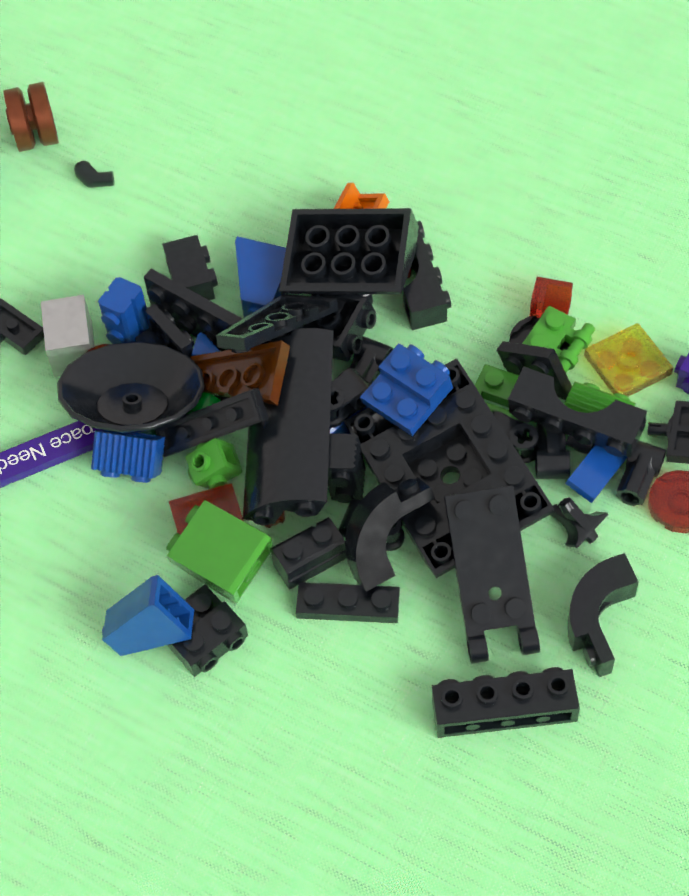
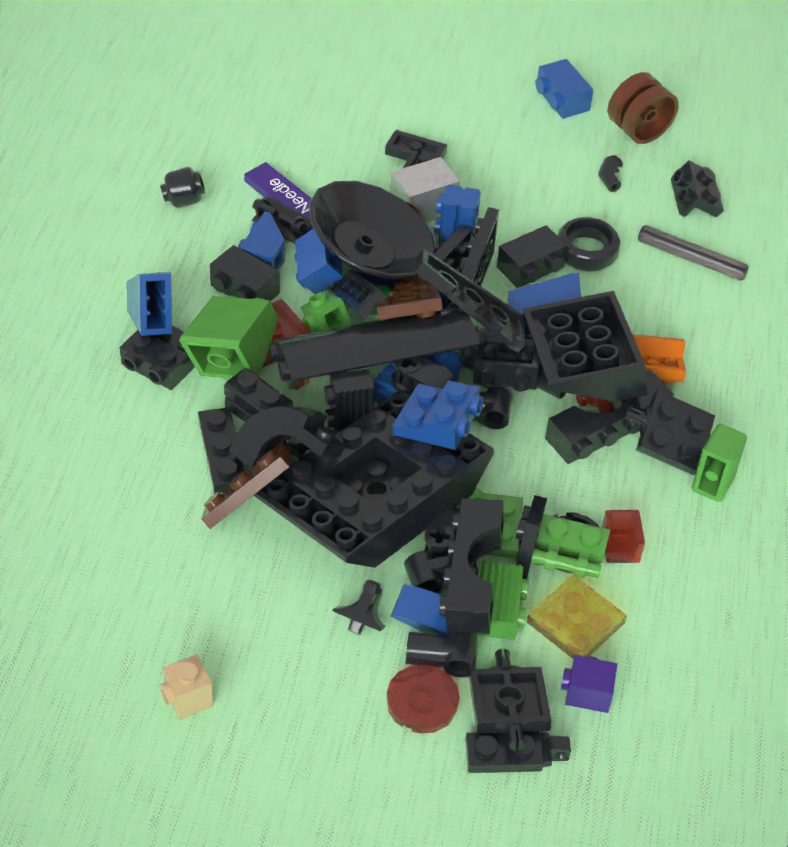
camera: 65 degrees right, 10 degrees down
(49, 476) = (290, 223): none -> black hinge
(86, 500) = (265, 242): none -> blue slope
(125, 529) = (244, 276): none -> black brick
(147, 116) = (696, 188): none -> black bracket
(182, 203) = (595, 229): none -> black wheel
(225, 145) = (693, 252): none -> axle
(423, 575) = (247, 484): none -> wing
(452, 225) = (672, 431): none -> black plate
(490, 555) = (279, 523): black hinge -> none
(500, 201) = (719, 462): none -> bright green brick
(505, 702) = (144, 584): black brick -> none
(596, 591) = (269, 632): black arch -> none
(637, 685) = (187, 687): none -> tan brick

